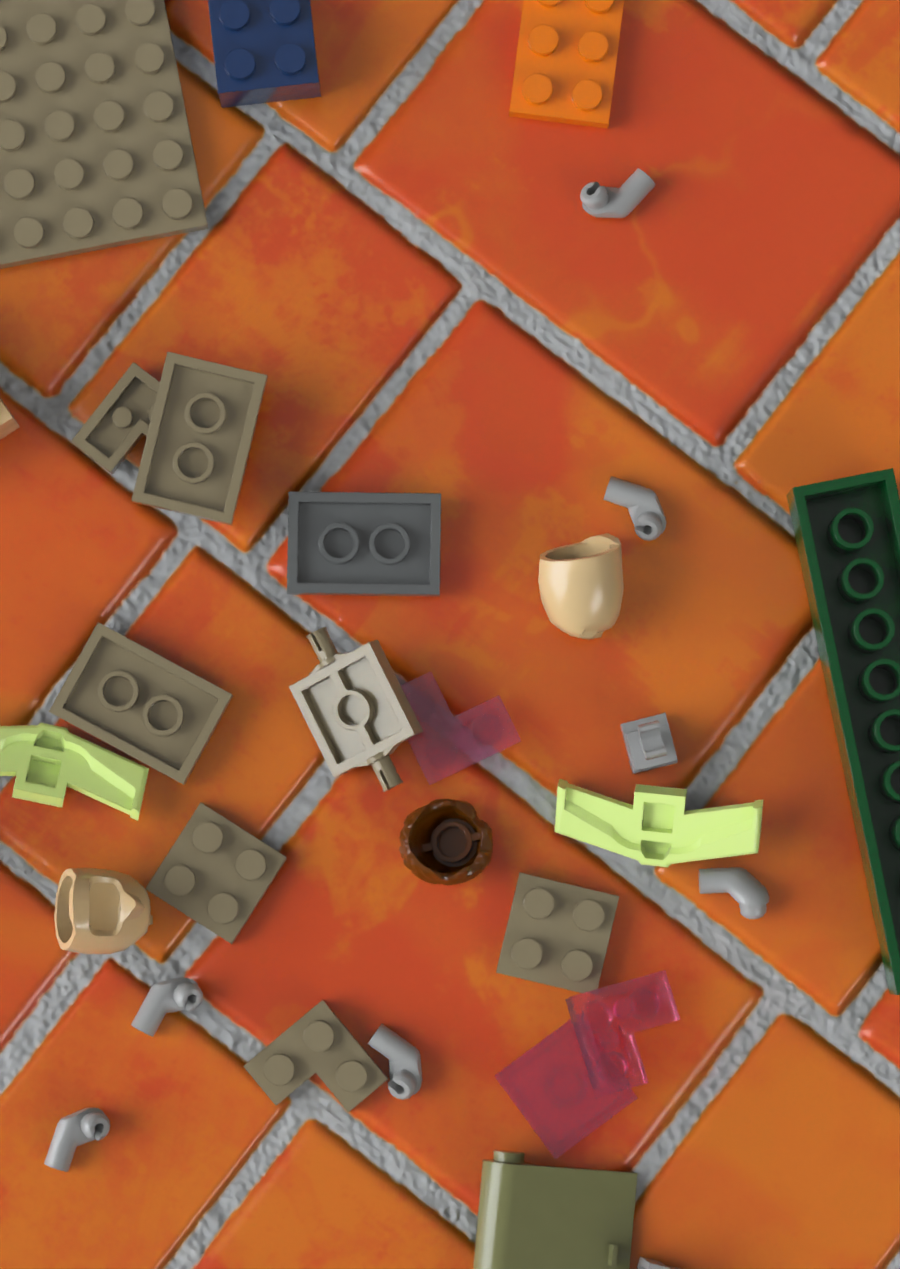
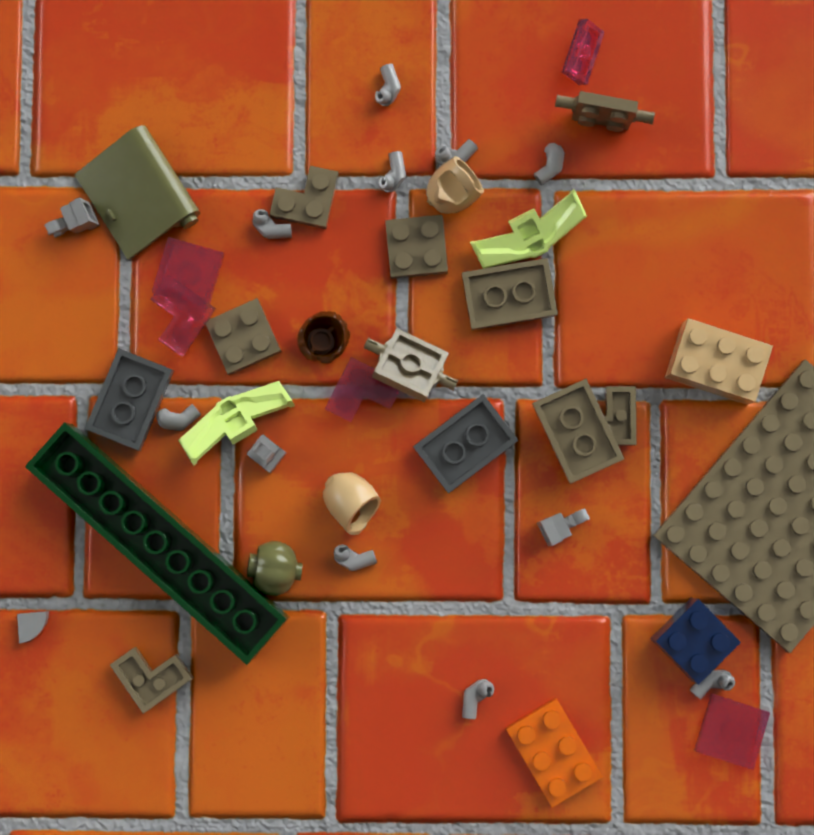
camera: 150 degrees right, 0 degrees up
(70, 966) = (464, 152): none -> light grey arm
(331, 334) = (557, 527): none -> light grey piece
(758, 576) = (274, 568): none -> olive plant
(784, 966) = (129, 399): none -> dark grey plate

